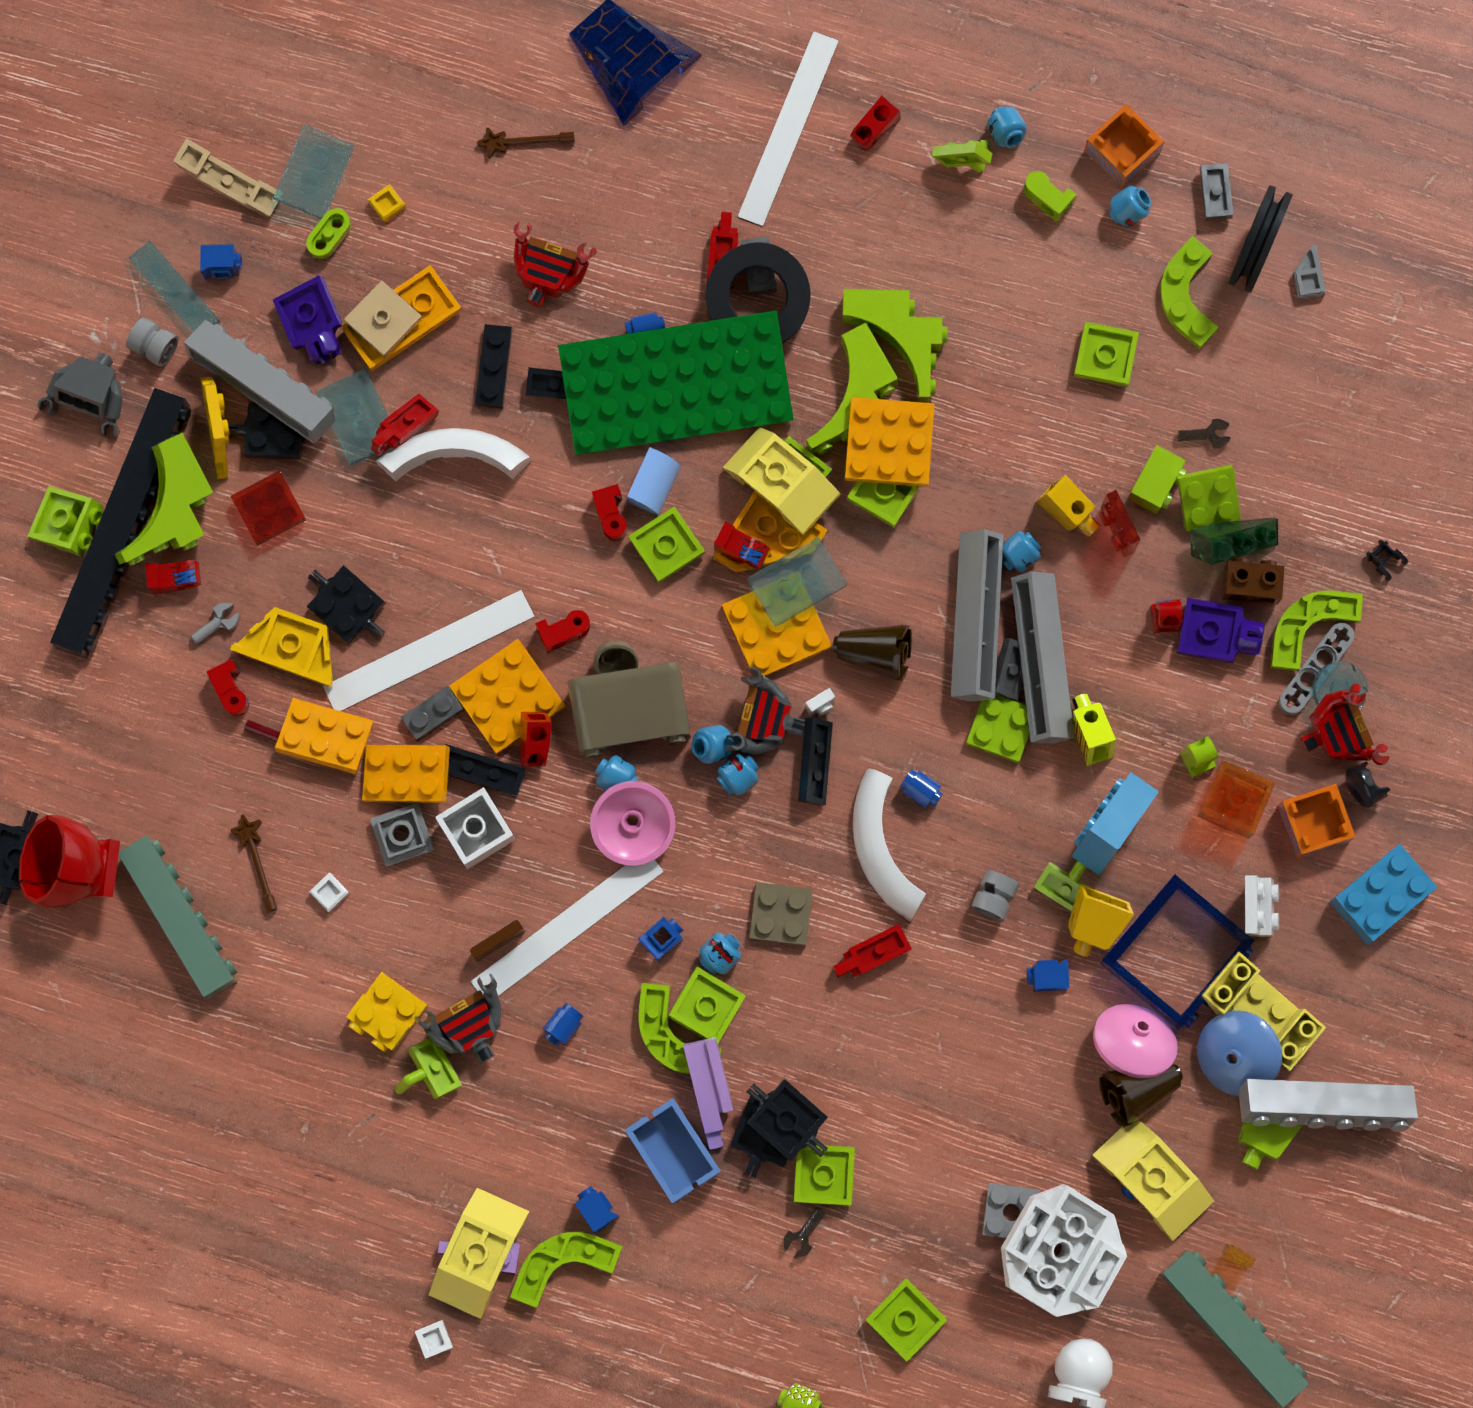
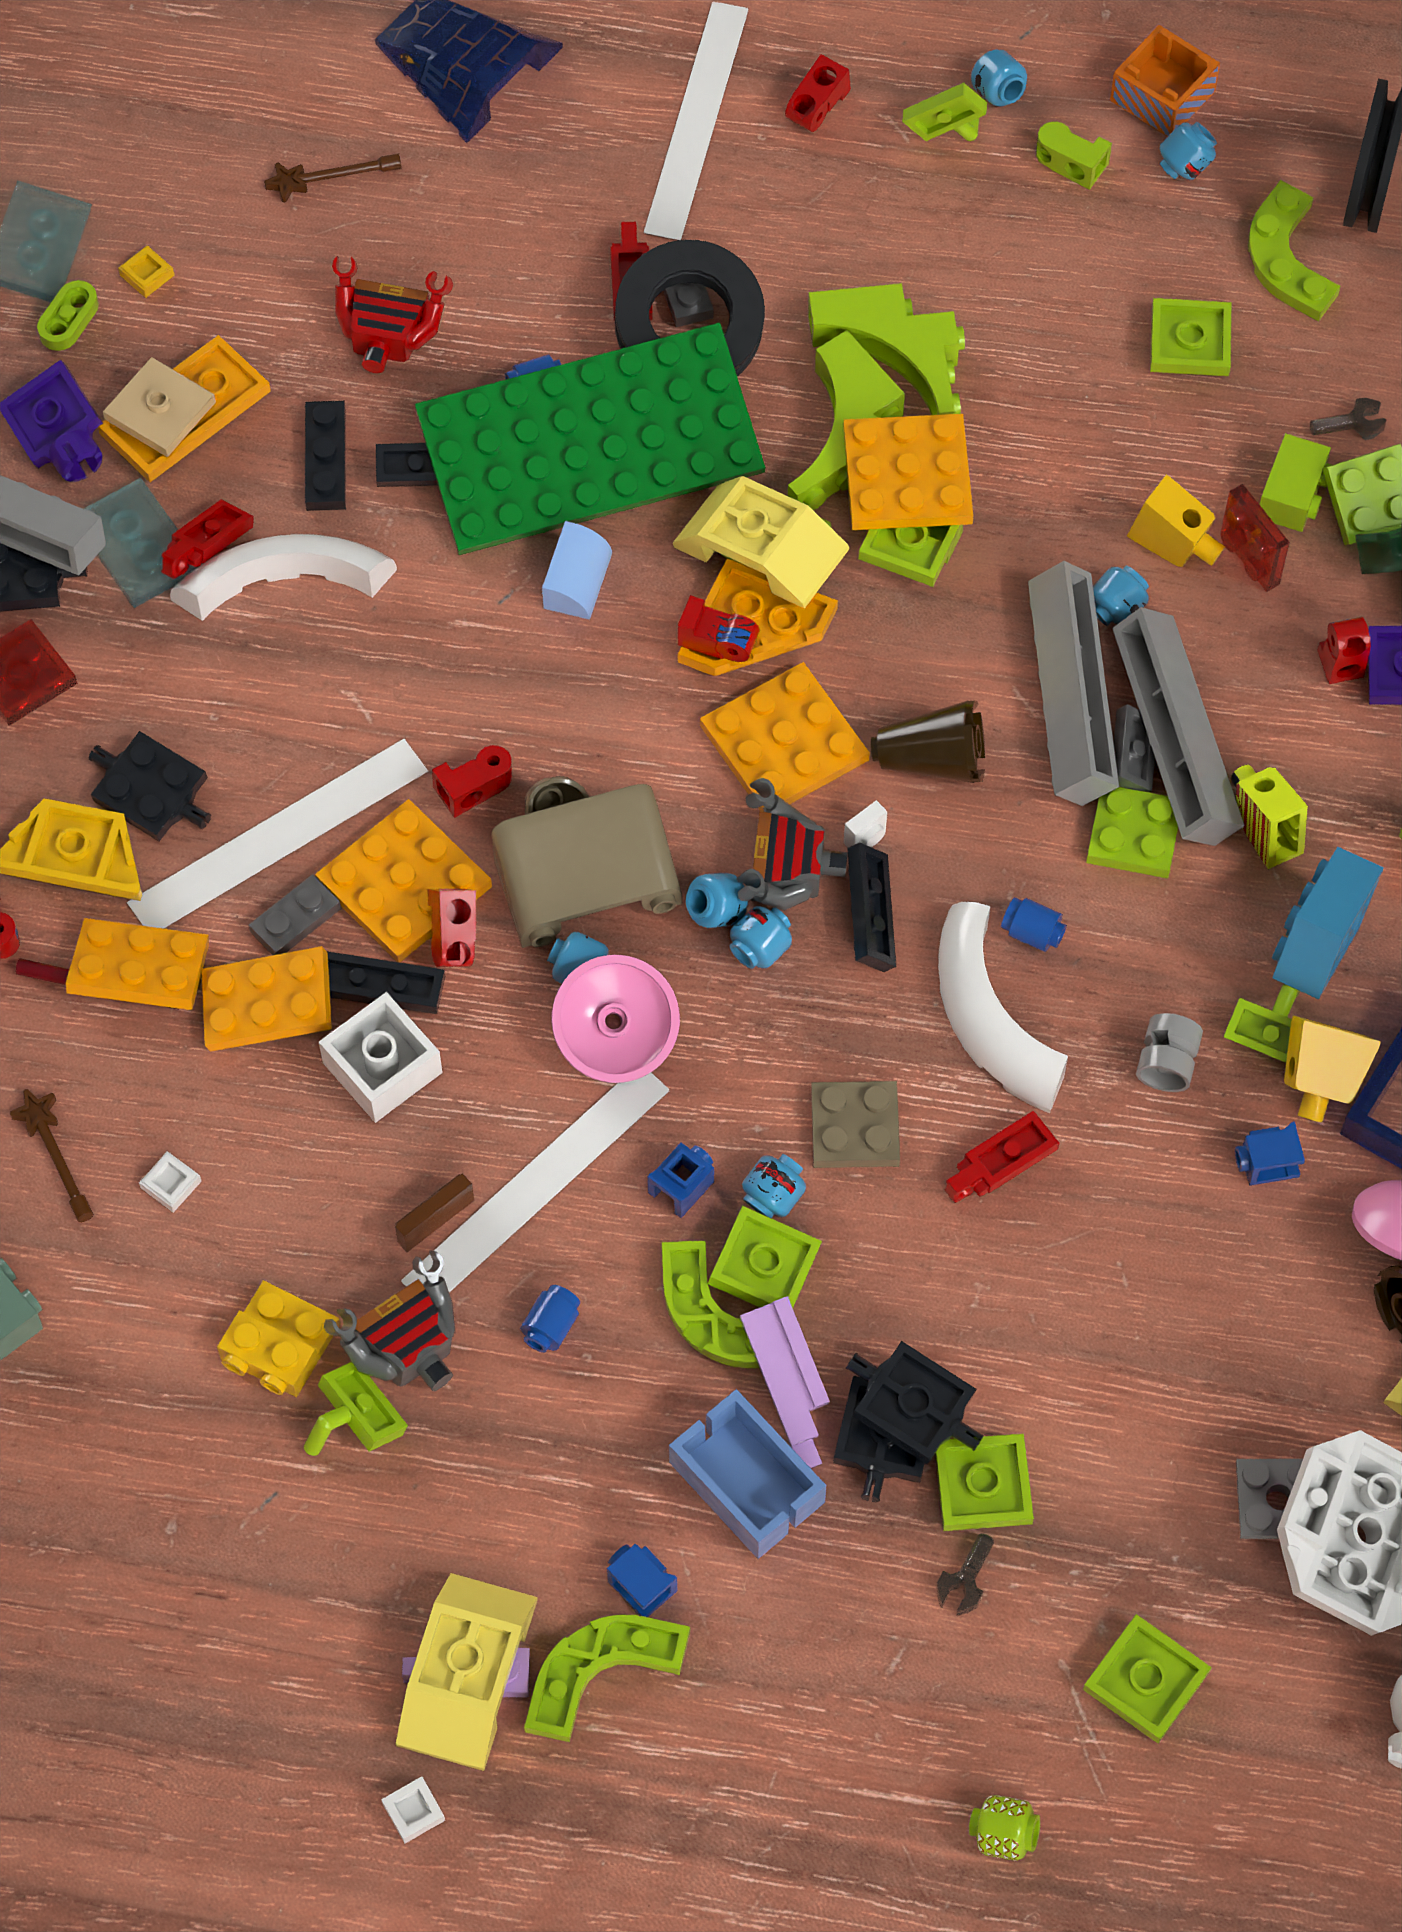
camera: 10 degrees left, 15 degrees down
(399, 851) = (263, 1107): light grey piece -> none
(612, 522) = (522, 627): red leg -> none
(666, 544) = (608, 650): lime plate -> none
(796, 582) = (805, 671): clear light blue tile -> none
(1216, 191) = (1302, 124): flat silver plate -> none

